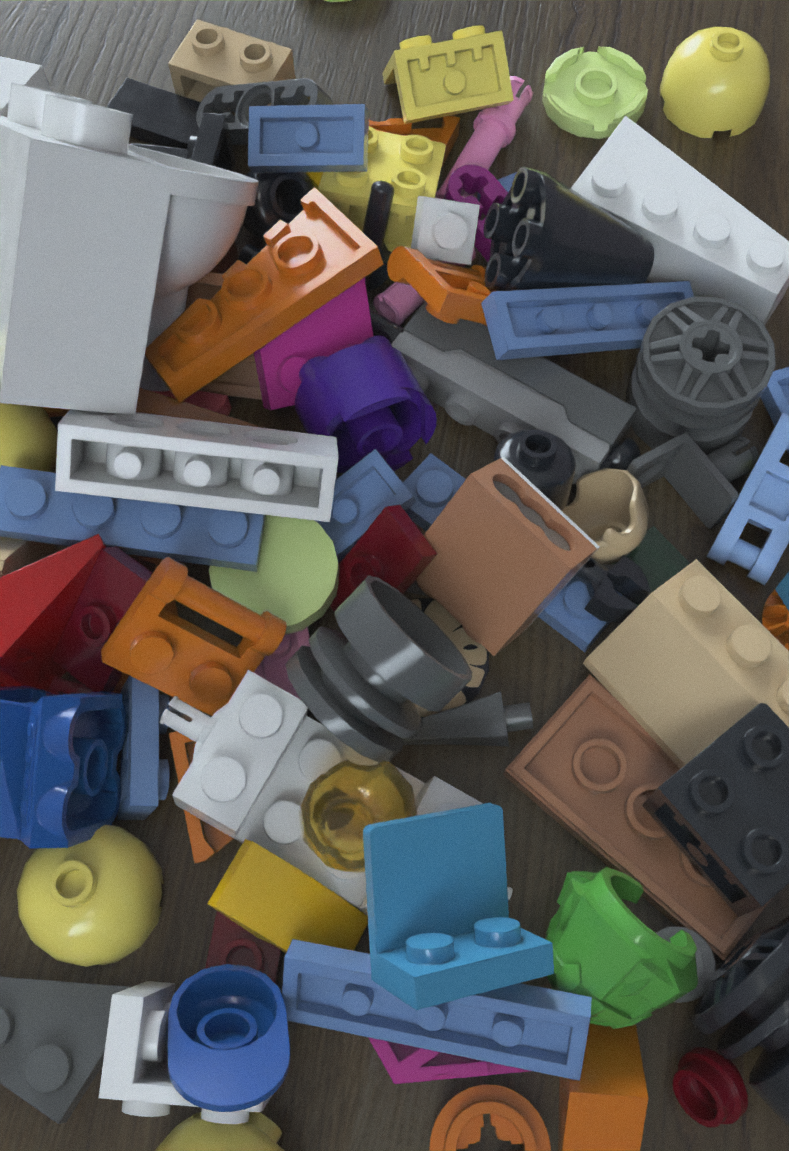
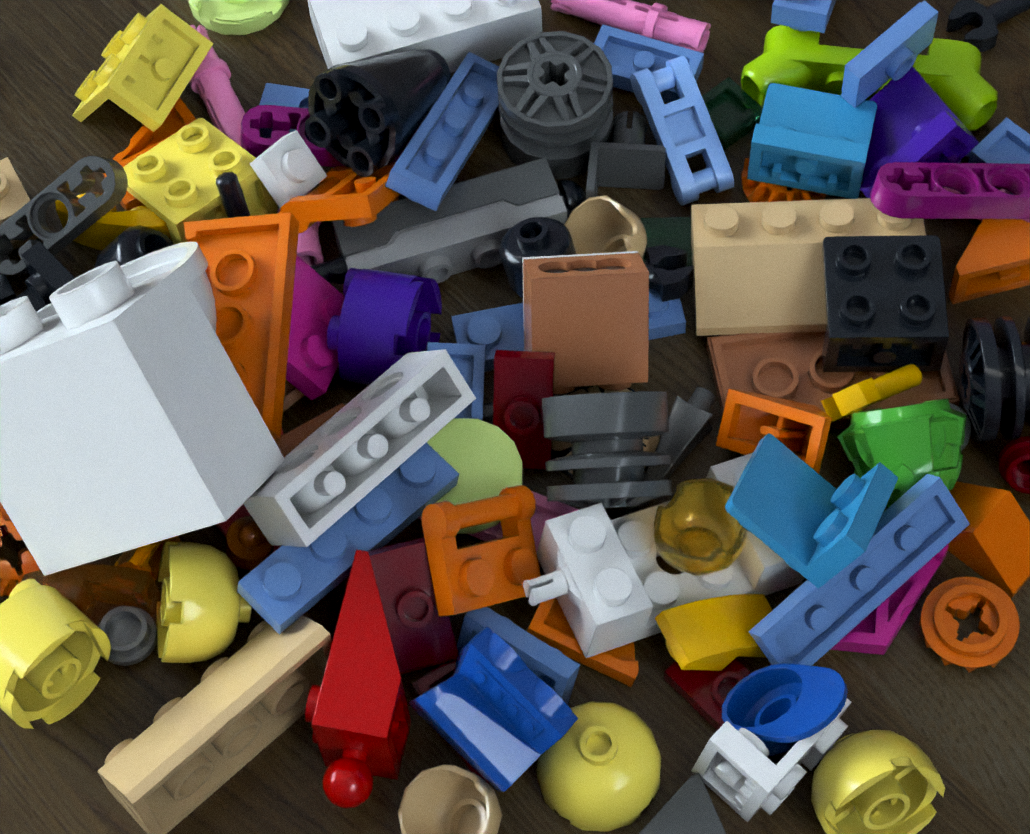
camera: 50 degrees left, 5 degrees down
(308, 138) = (138, 195): medium blue plate -> none
(539, 804) = (795, 424): none -> orange slope
(637, 866) = (871, 391): none -> yellow bar

